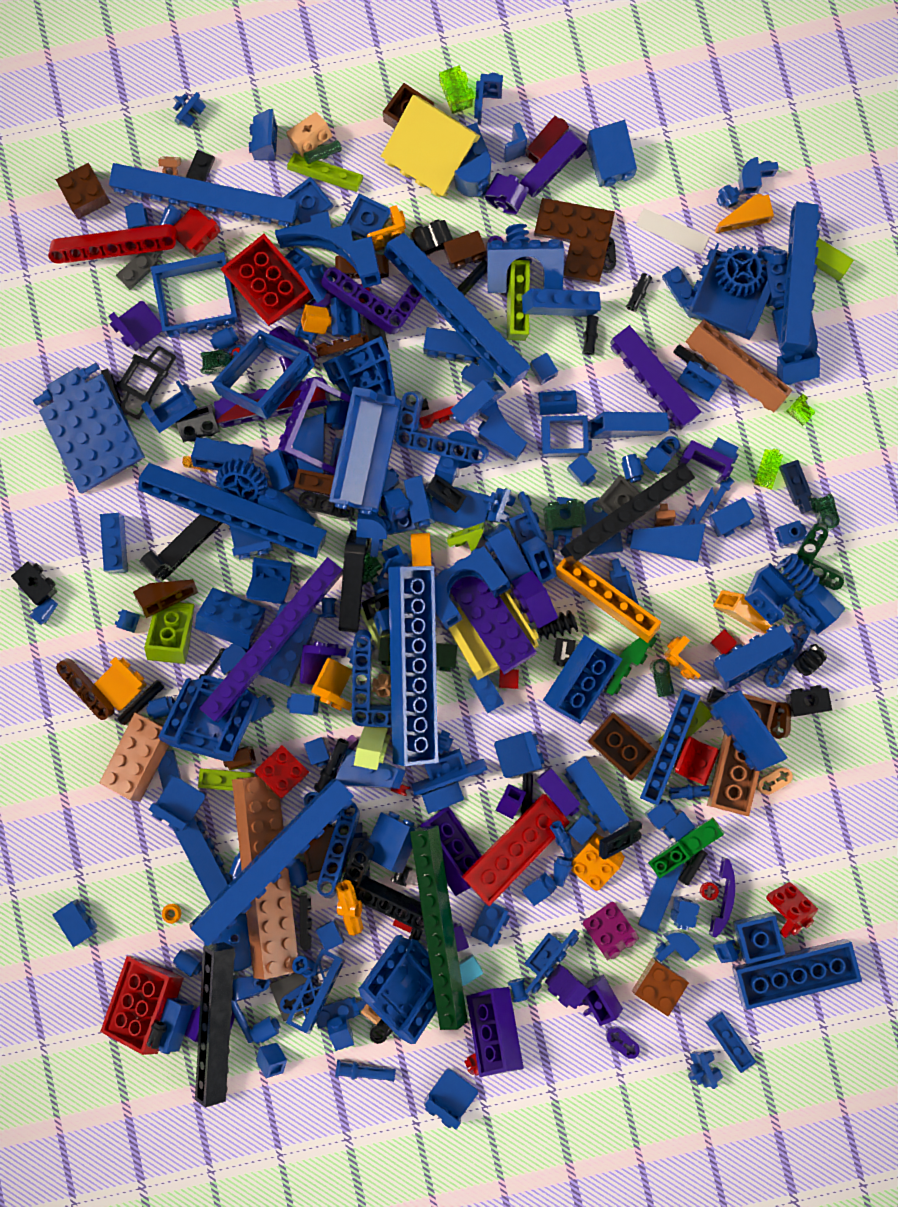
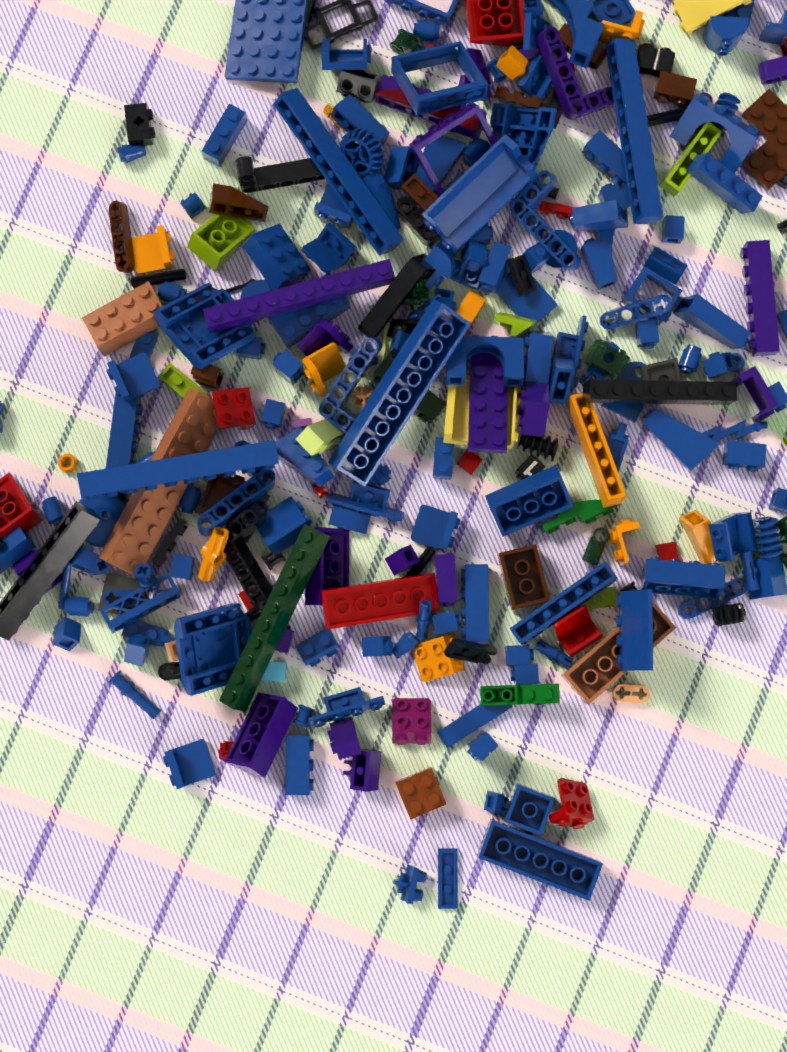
camera: 30 degrees right, 0 degrees up
(328, 608) = (361, 304): blue bush -> none
(329, 772) = (280, 430): black pin -> none
(497, 503) = (558, 312): blue hips -> none
(506, 193) = (741, 64): dark purple brick -> none
(542, 1034) = (298, 765): none -> blue brick
(562, 460) = (634, 308): none -> blue beam
(590, 335) = (731, 228): black pin -> none
(619, 1046) = (363, 815): dark purple beam -> none
(664, 516) = (689, 416): nougat tile -> none
(676, 941) = (462, 769): blue brick -> none
(692, 867) = (515, 715): black axle -> none
(713, 896) = (514, 751): red bush -> none
(719, 922) = (539, 739): dark purple slope -> none
(781, 720) = (670, 647): reddish brown beam -> none
(820, 701) = (692, 644): black brick -> none

